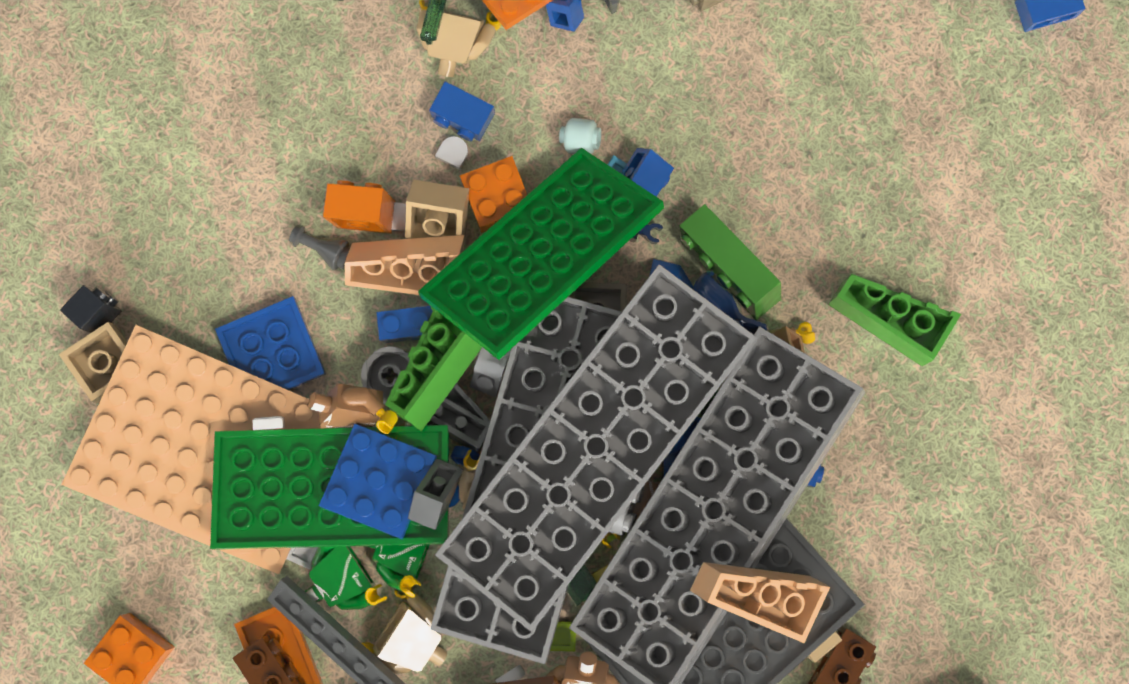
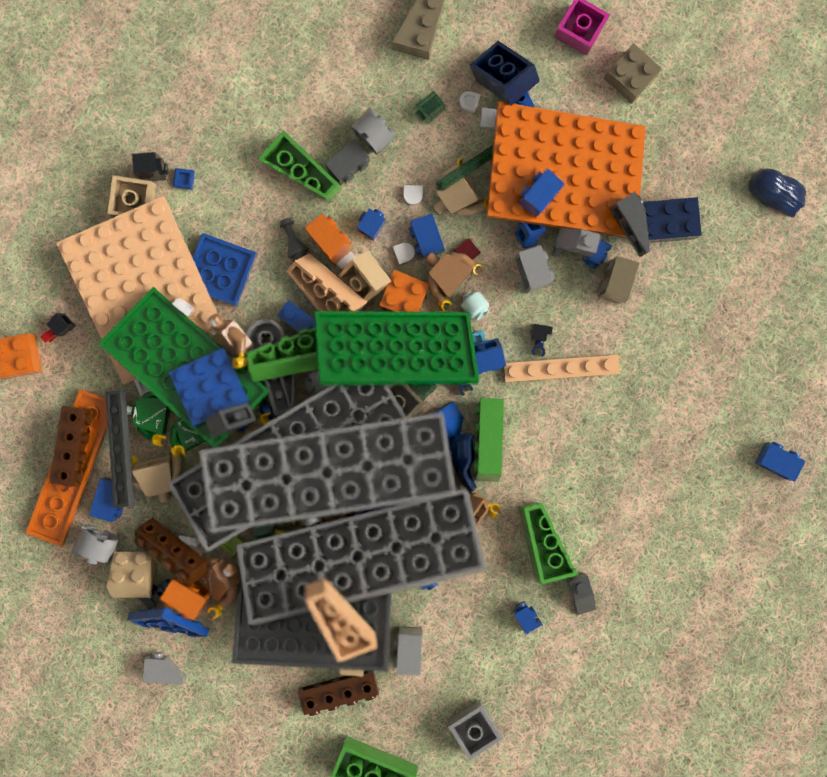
camera: 45 degrees right, 5 degrees up
(141, 291) = (184, 179): none -> blue tile
(149, 576) = (59, 326): none -> black piece
(253, 162) = (294, 162): none -> bright green wedge
(301, 53) = (373, 131): none -> light grey brick
(304, 111) = (348, 162): none -> dark grey brick
(389, 152) = (371, 223): none -> blue brick
(405, 83) = (413, 194): none -> white tile
(519, 89) = (468, 248): none -> dark red tile
(523, 128) = (448, 274): none -> medium nougat torso
(607, 40) = (534, 269): none -> light grey brick
(610, 271) = (423, 391): none -> clear green brick
(677, 103) = (539, 333): none -> black piece
(733, 119) = (561, 368): none -> light nougat plate
(863, 567) = (409, 646): none -> light grey brick
(950, 413) = (526, 617): none -> blue brick
(982, 332) = (581, 593): none -> dark grey slope
(1013, 586) = (474, 729): none -> light grey brick

